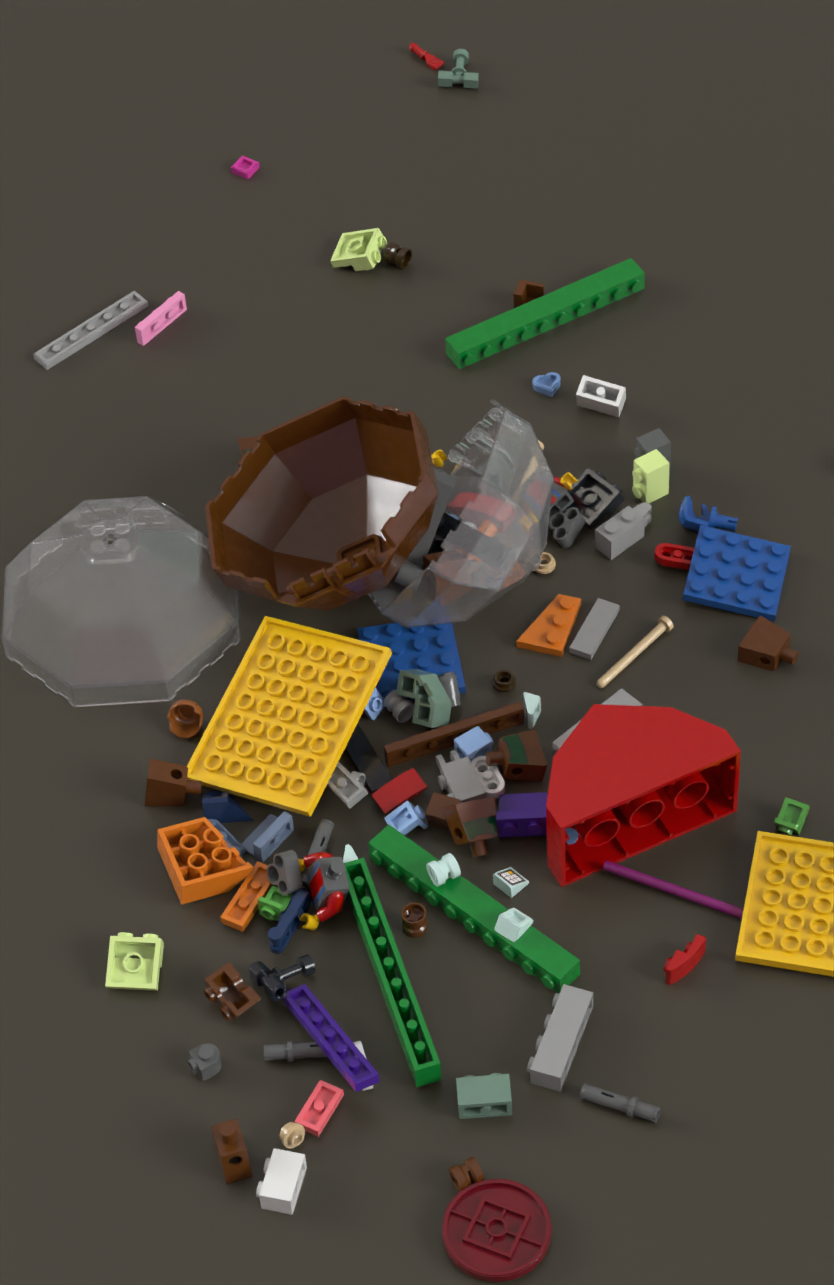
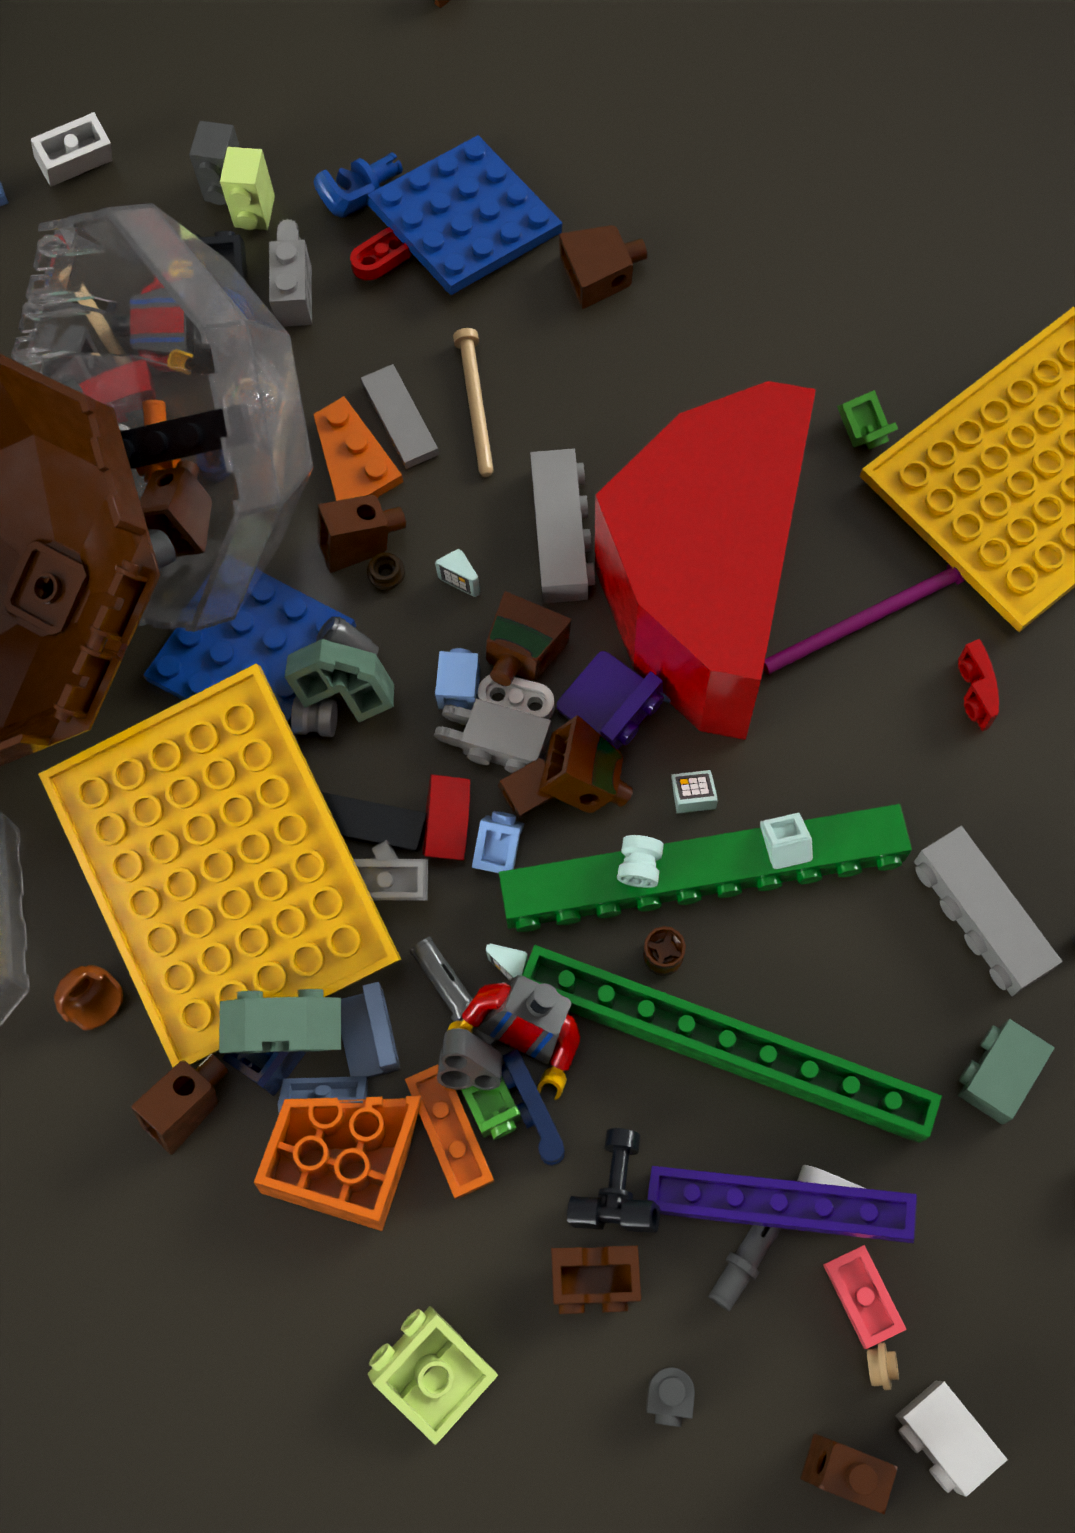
camera: 50 degrees left, 20 degrees up
(237, 786) = (280, 1023): none -> sand green brick
(443, 736) = (410, 701): reddish brown plate -> none
(509, 650) = (355, 530): none -> reddish brown torso

